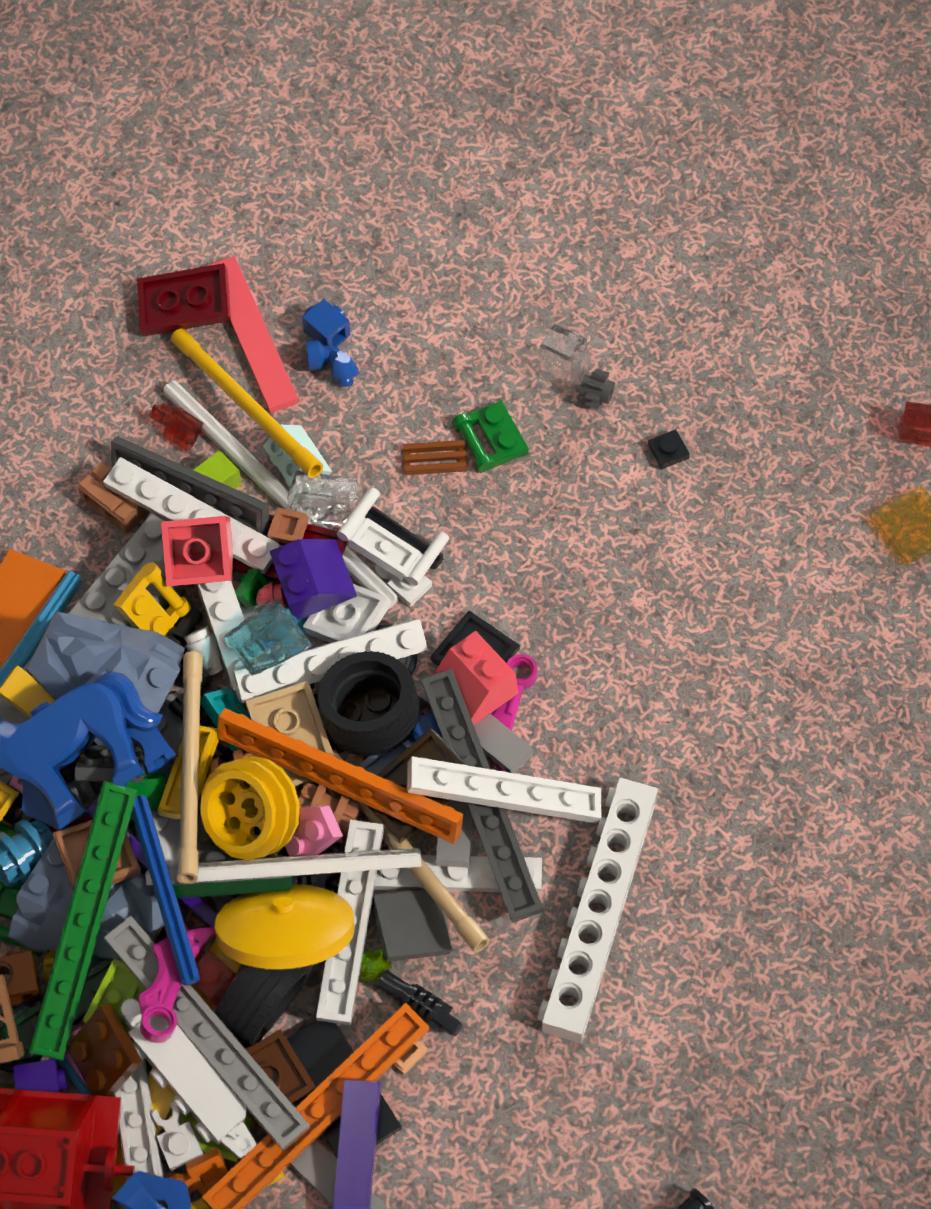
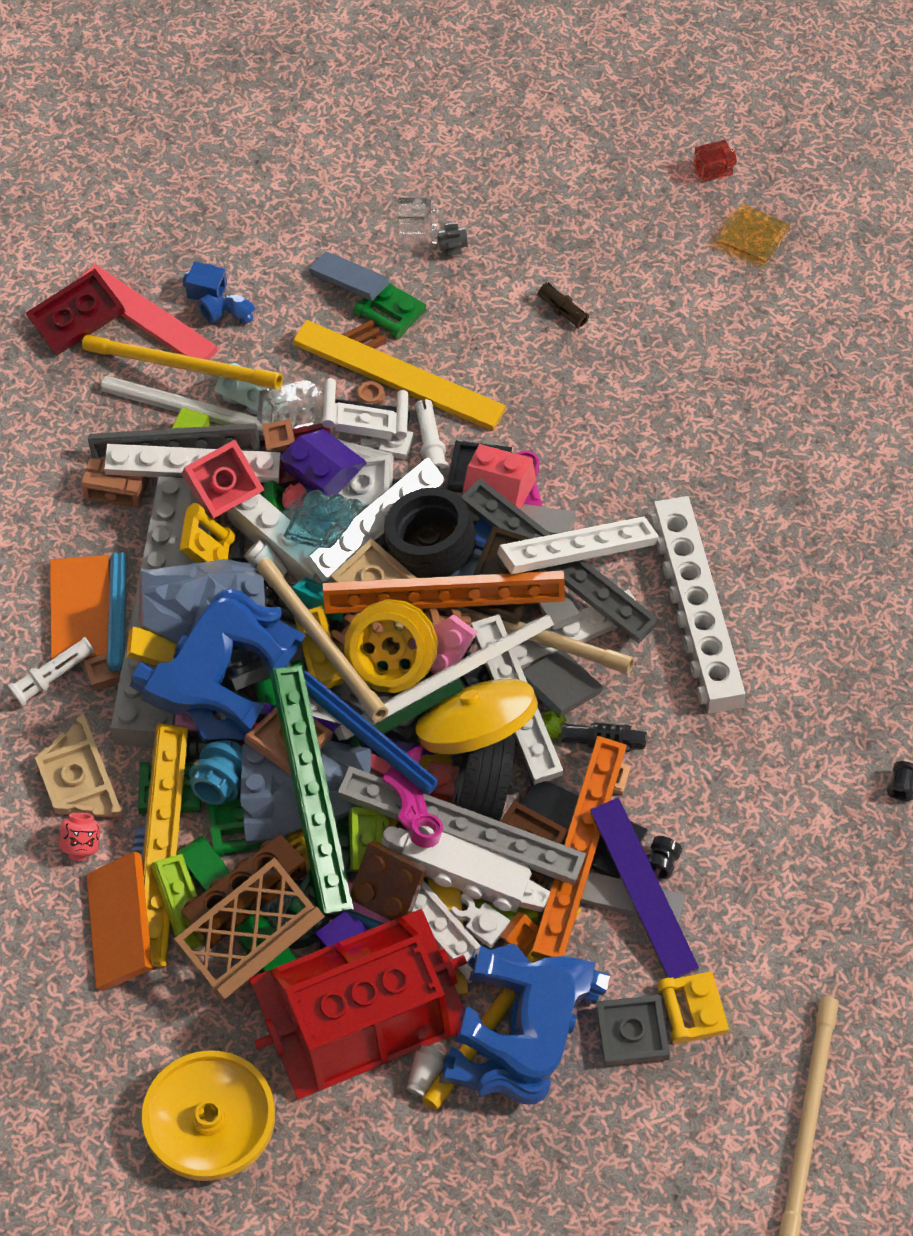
camera: 30 degrees left, 5 degrees down
(179, 425) = (134, 407): clear red plate -> none
(403, 1160) = (663, 854): none -> black wheel
(417, 519) = (371, 392): none -> nougat tile
(439, 609) = (432, 446): none -> white pin
(456, 514) = (399, 375): none -> yellow tile
(469, 382) = (349, 276): none -> sand blue tile
(666, 513) = (563, 305): none -> dark brown pin
(668, 449) = (534, 260): black plate -> none

